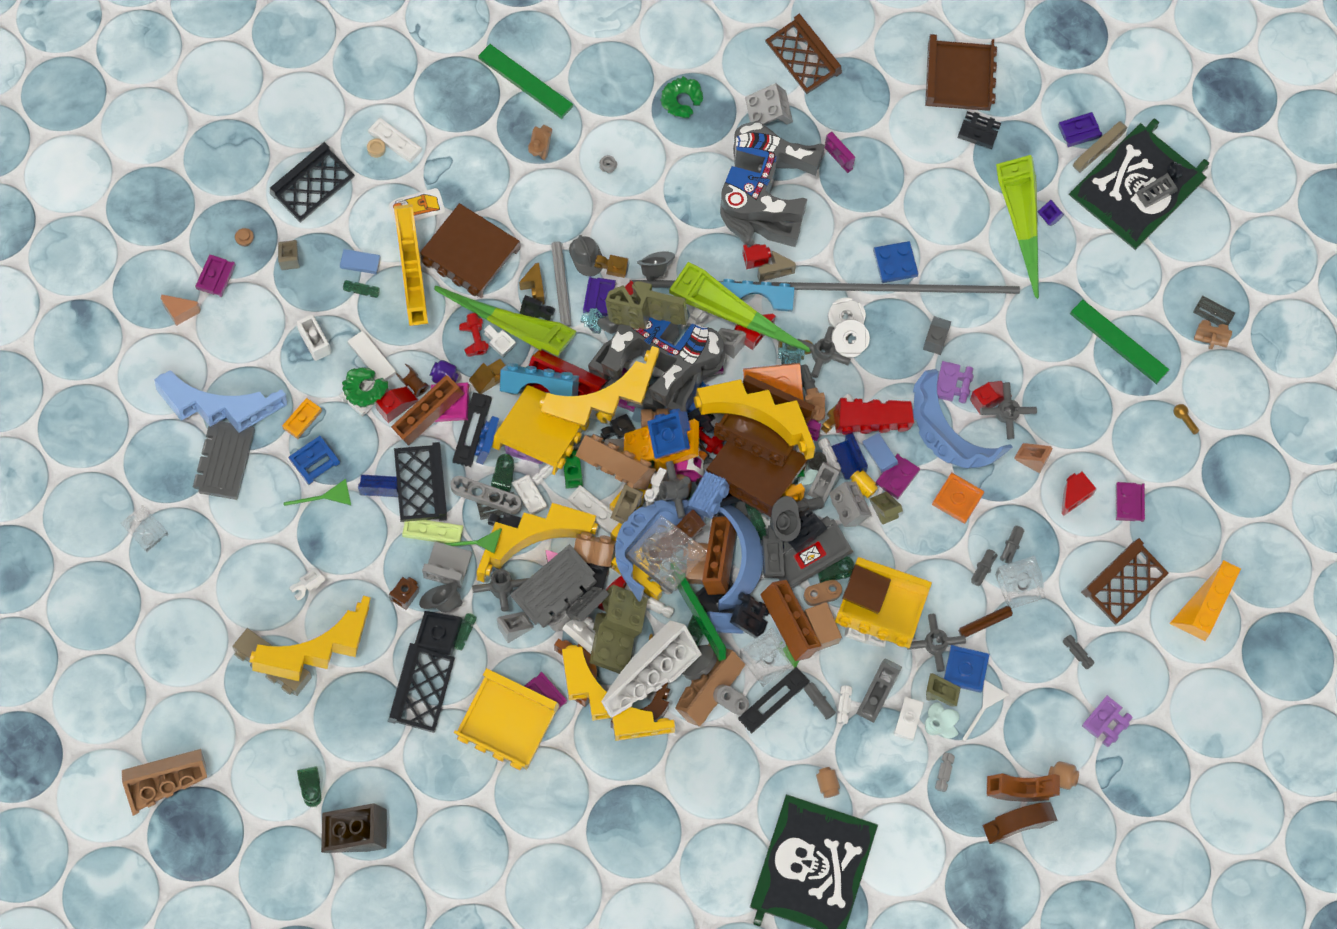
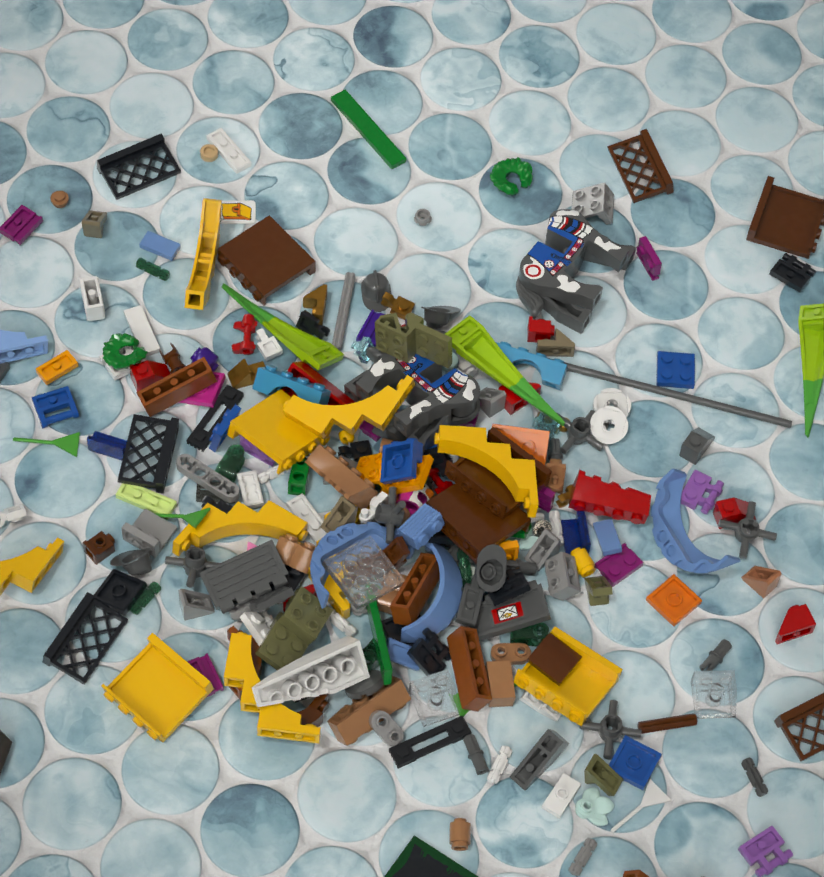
camera: 15 degrees right, 10 degrees down
(540, 141) = (363, 181): medium nougat hips -> none
(983, 567) = (680, 671): dark grey axle -> none

